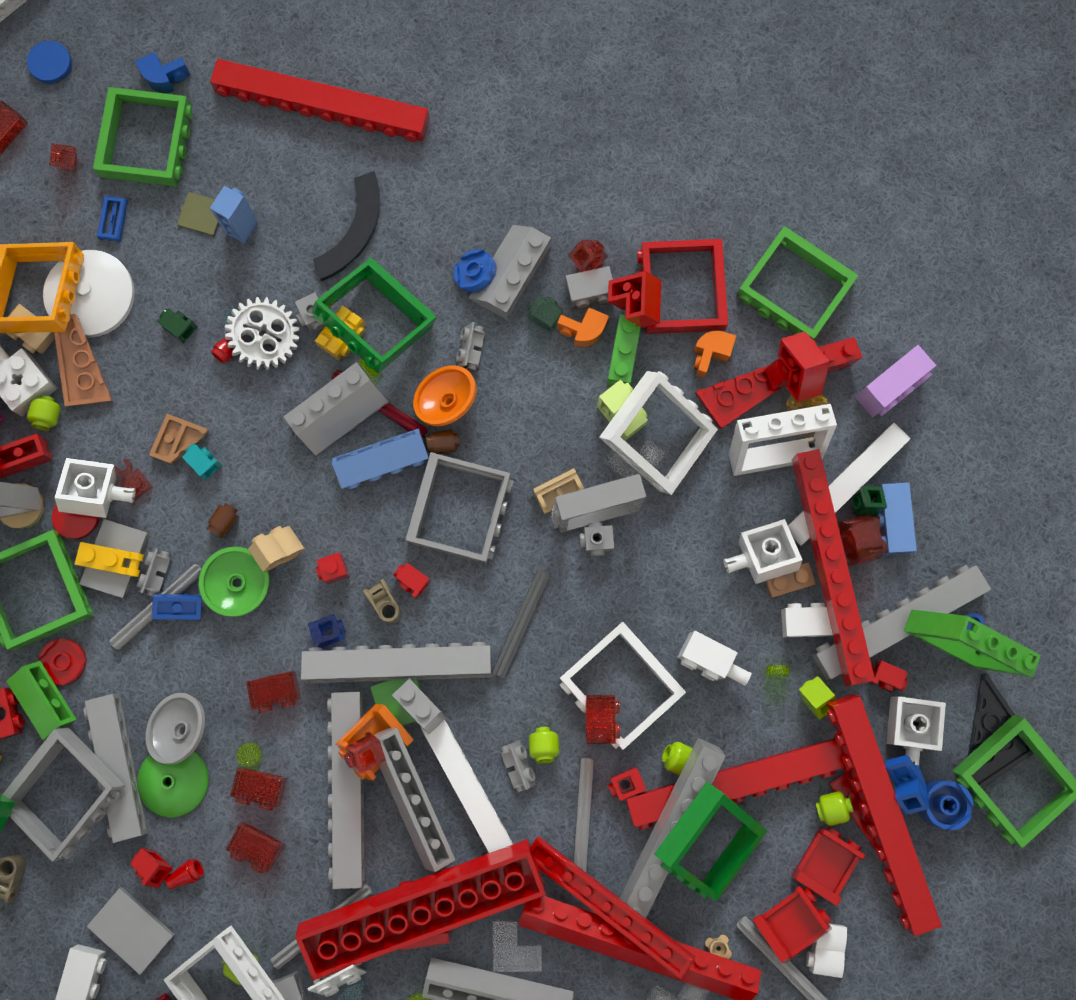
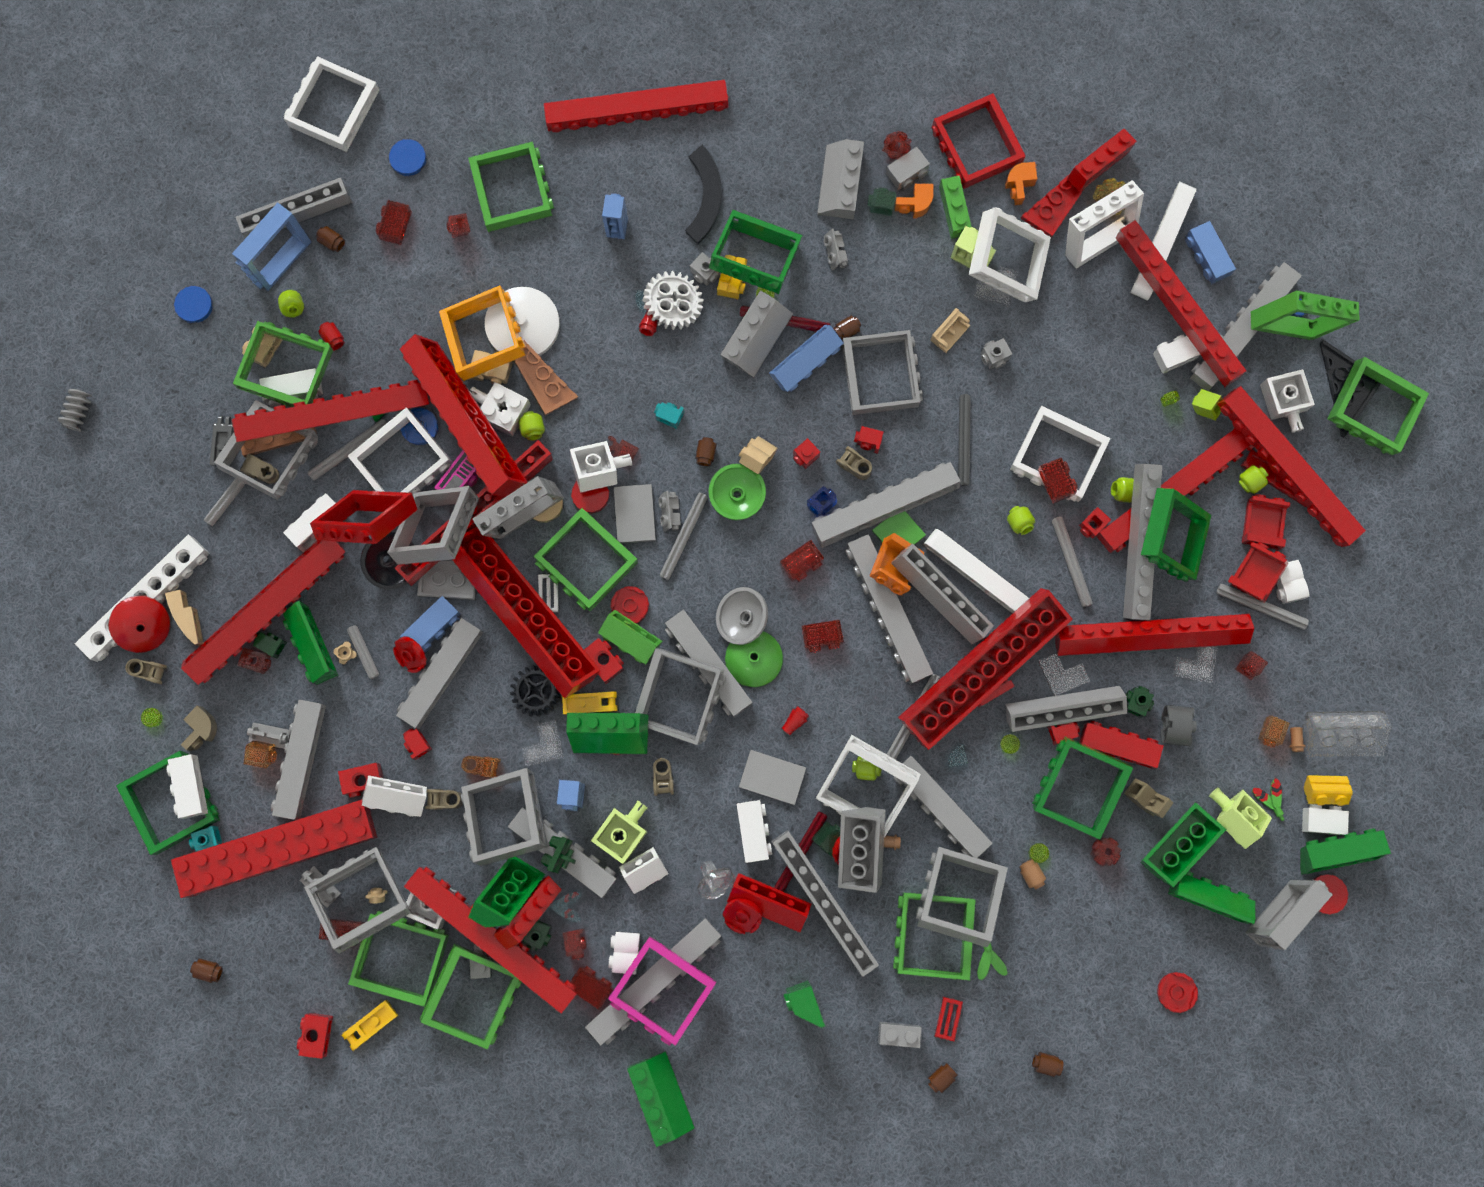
camera: 20 degrees left, 0 degrees up
(108, 559) = (633, 514): yellow plate -> none
(120, 221) = (517, 273): blue tile -> none
(150, 867) = (768, 724): red brick -> none
(160, 76) = (499, 135): blue brick -> none
(175, 438) = (641, 406): medium nougat wing -> none
(176, 606) = (701, 528): blue plate -> none
(177, 324) = (602, 319): dark green brick -> none
(197, 214) = (581, 229): olive piece -> none
(249, 754) = (803, 616): clear neon green tile -> none
(254, 847) = (839, 679): clear red brick -> none
(329, 984) = (939, 753): white hinge -> none
(364, 753) = (895, 571): clear red brick -> none
(419, 706) = (918, 526): light grey brick -> none
(444, 395) = (834, 292): orange dish -> none
(475, 270) = (814, 190): blue tile -> none
(523, 775) = (1002, 538): light grey hinge -> none
(598, 503) = (989, 323): light grey window -> none
(612, 909) = (1128, 612): red tile -> none
(637, 295) = (950, 158): red brick -> none
(711, 658) = (1117, 406): white brick -> none
(722, 942) = (1210, 609): tan plate -> none
(765, 565) = (1126, 313): white brick -> none
(791, 581) = (1150, 329): medium nougat plate -> none
(805, 365) = (1100, 160): red brick -> none
(813, 256) = (1070, 81): bright green window -> none
(862, 539) = (1194, 275): clear red brick -> none
(863, 501) = (1185, 252): dark green brick -> none
(889, 676) = (1255, 369): red brick -> none
(896, 382) = (1169, 150): lavender brick -> none
(909, 784) = (1300, 437): blue brick -> none
(957, 809) = (1322, 441): blue brick -> none

